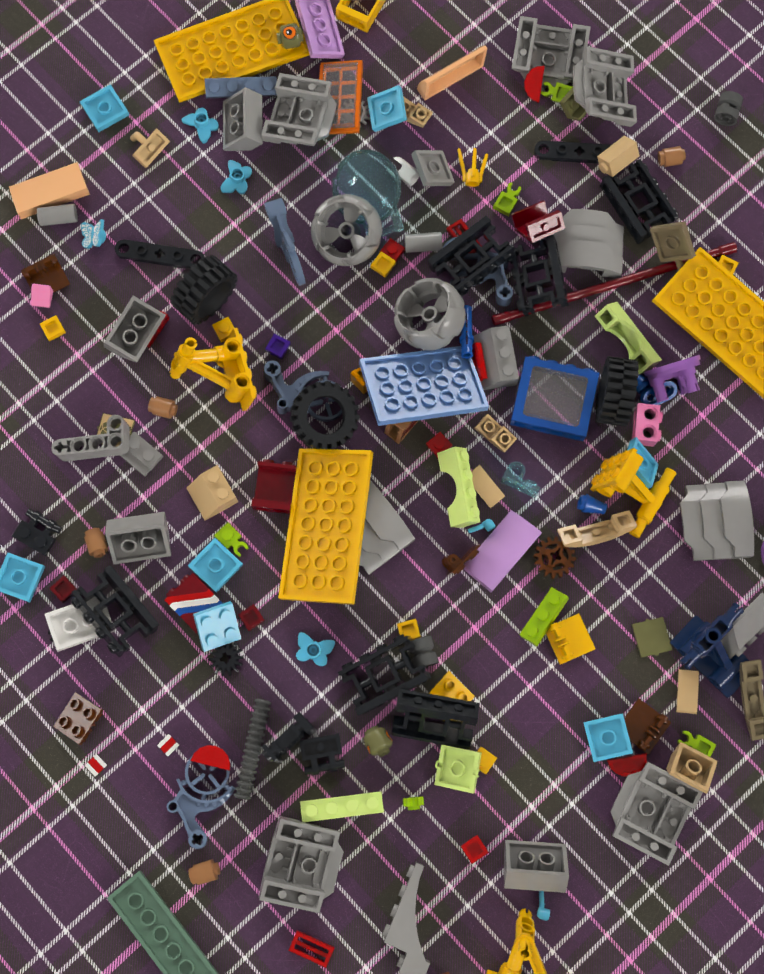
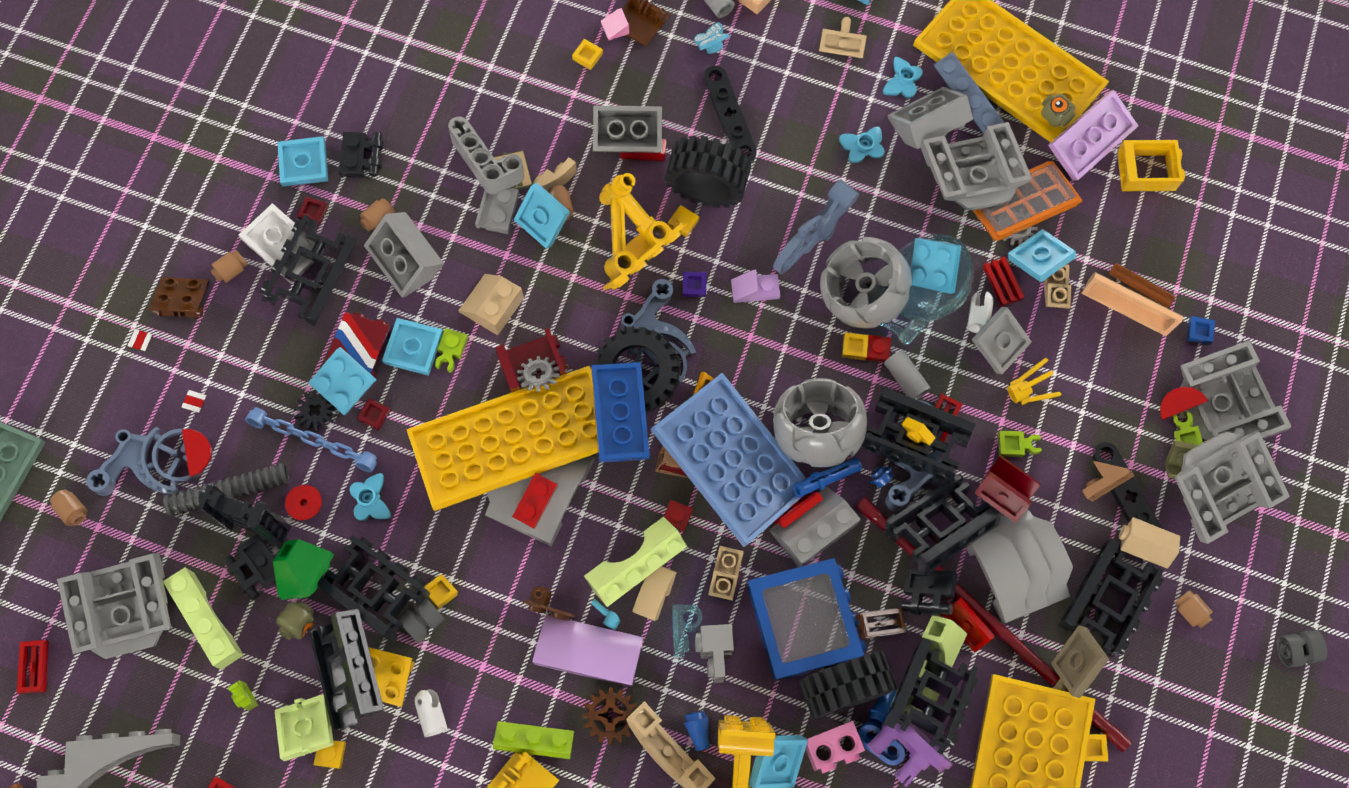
camera: 60 degrees right, 5 degrees down
(75, 671) = (228, 266): none -> medium nougat brick
(140, 403) = (561, 176): none -> tan slope
(167, 423) = (541, 215): none -> medium azure plate
(209, 702) = (258, 418): none -> medium blue piece
(284, 479) = (532, 368): none -> light grey gear
(292, 697) = (303, 502): none -> red piece
(302, 307) = (755, 288): none -> lavender slope
(345, 719) = (299, 568): none -> green slope
(353, 440) = (620, 412): none -> blue plate
(360, 177) = (935, 265): none -> medium azure plate
(382, 531) = (535, 500): none -> red plate
(390, 141) = (987, 267): none -> red tile
(440, 59) = (1142, 285): none -> dark orange axle
(472, 254) = (918, 431): none -> yellow plate
(483, 297) = (881, 476): none -> blue plate
(490, 677) = (430, 713): none -> white piece
(493, 42) = (1200, 330): none -> blue plate
(546, 463) = (715, 644): none -> light grey brick
(563, 153) = (1112, 478): none -> medium nougat slope
(577, 301) = (935, 584): none -> black plate
(580, 361) = (864, 626): none -> tile
(607, 296) = (966, 619): none -> red plate
(639, 351) = (914, 685): none -> black fence

